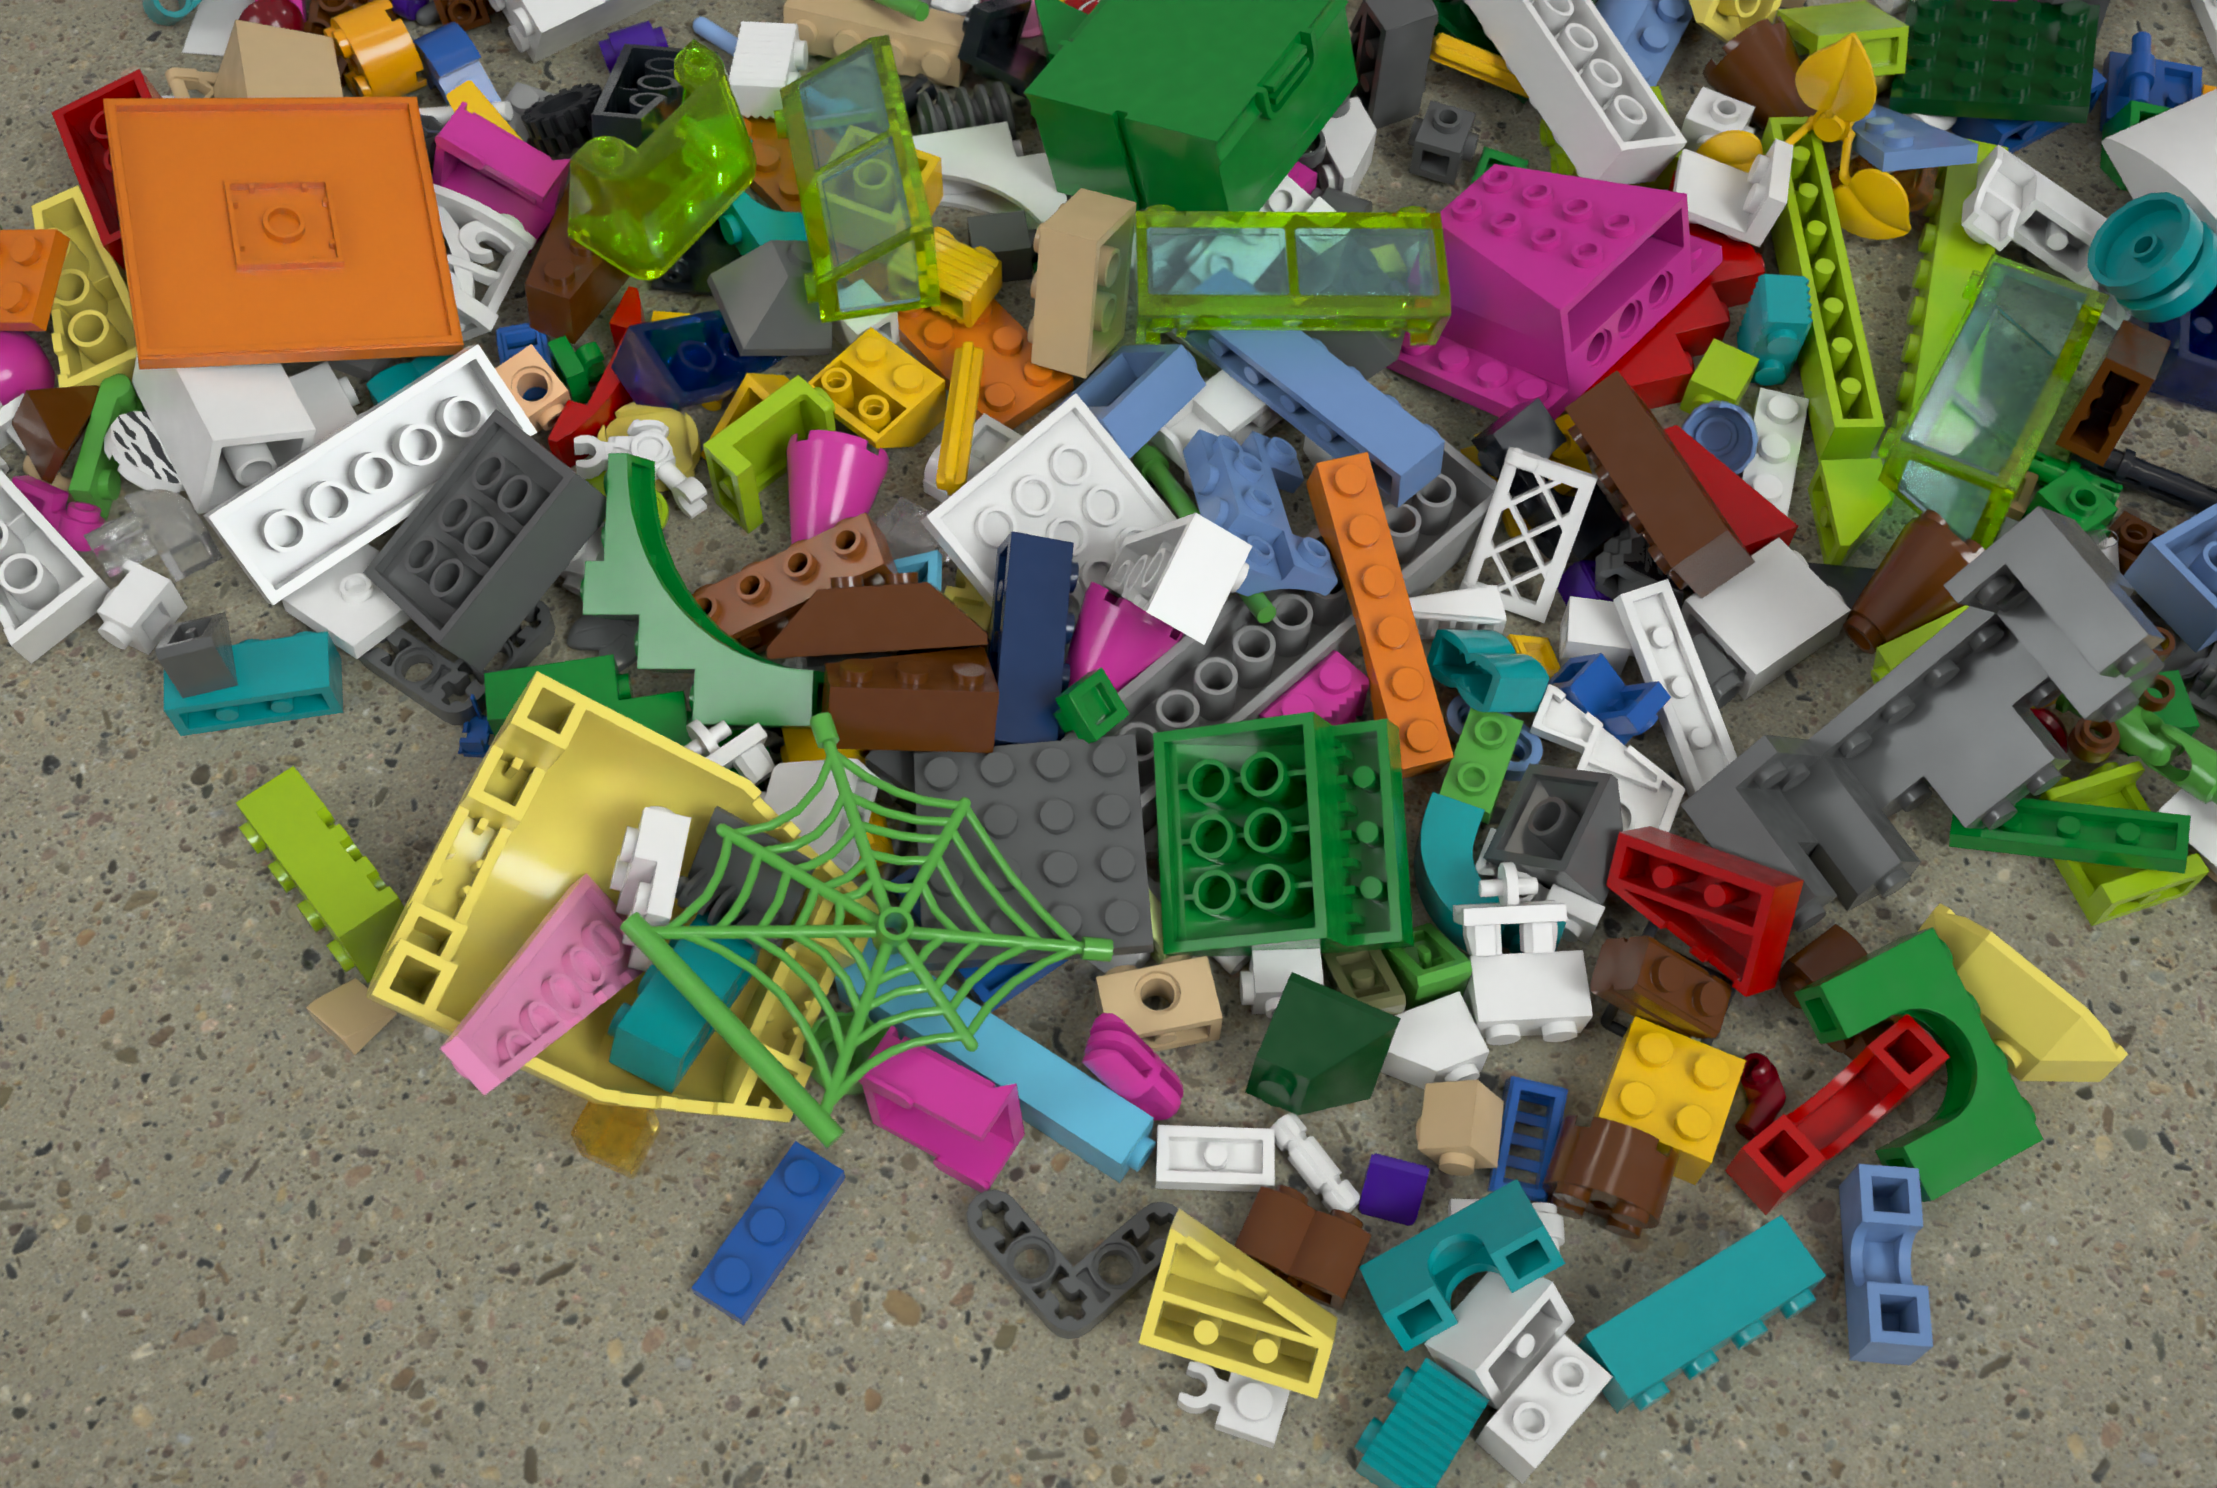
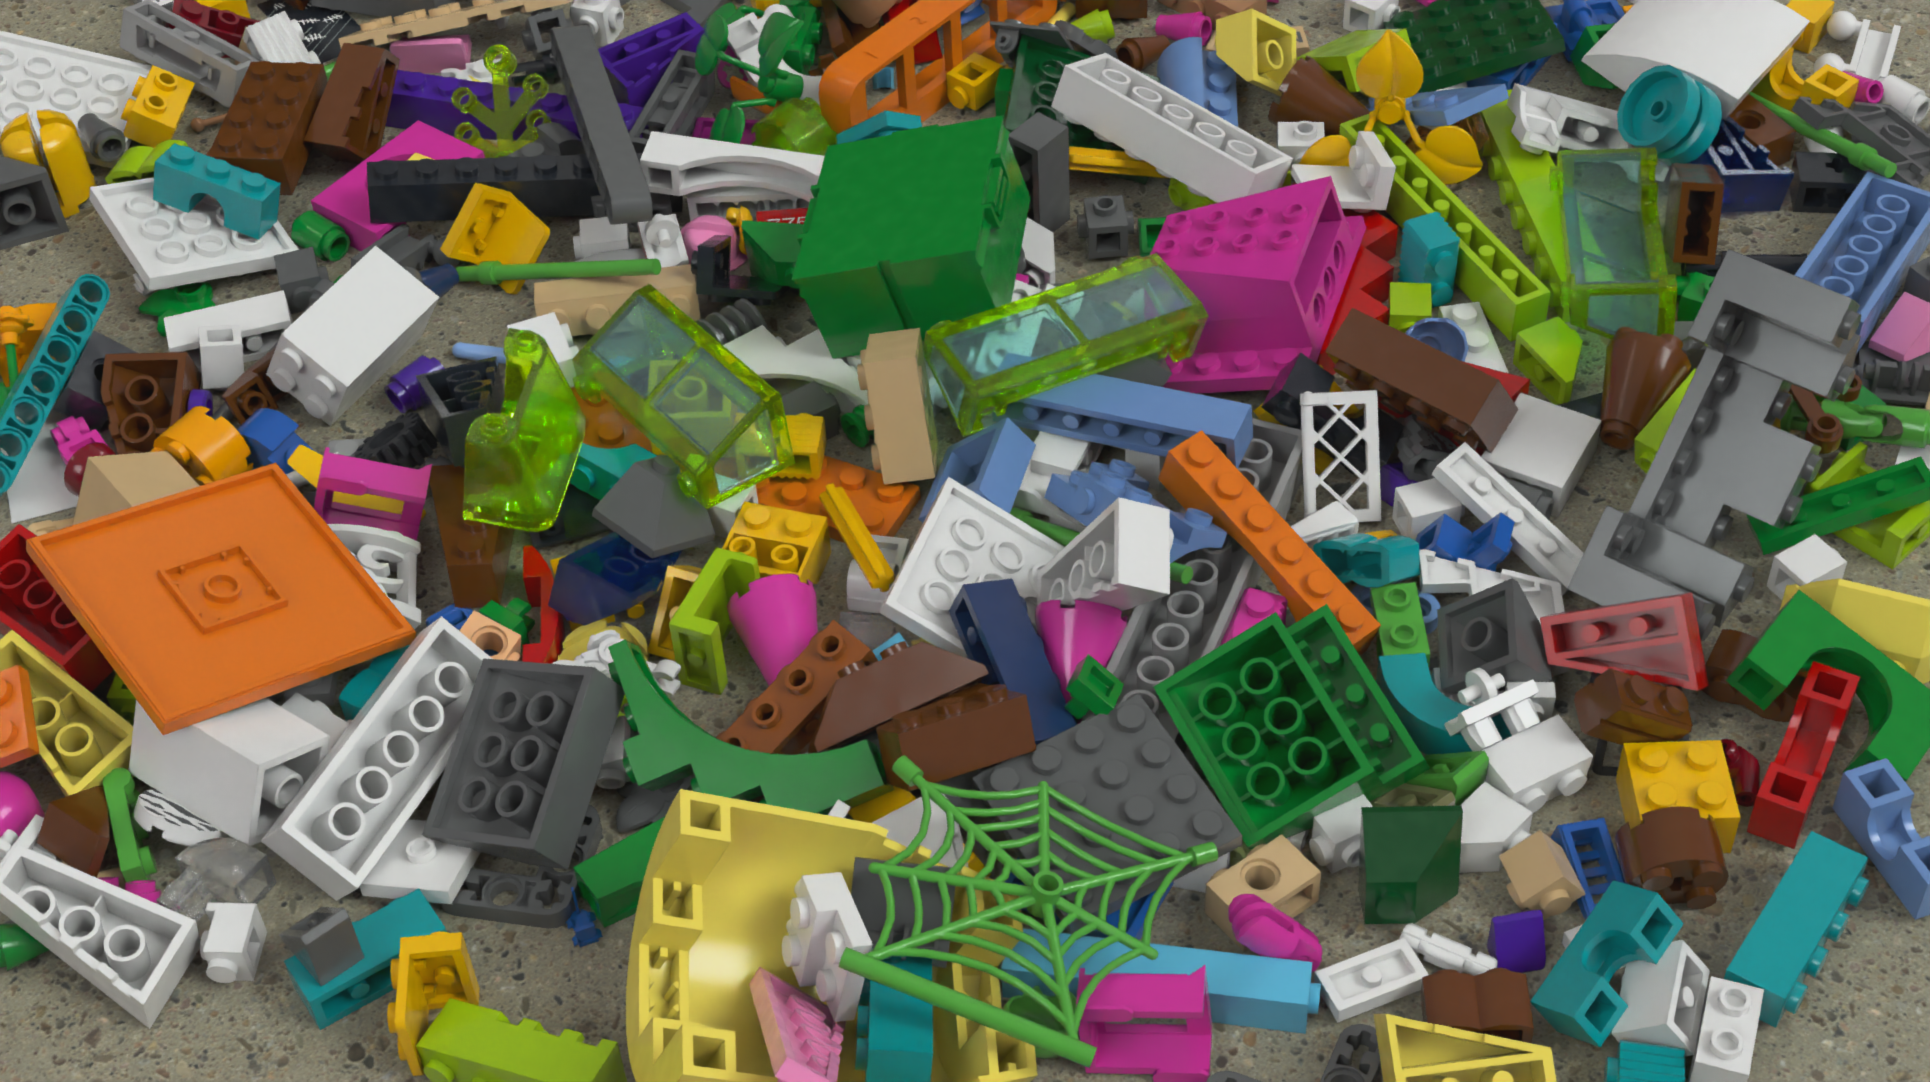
camera: 20 degrees left, 15 degrees down
(263, 743) = (425, 978): none -> yellow bracket
(1984, 890) = (1805, 563): none -> white brick

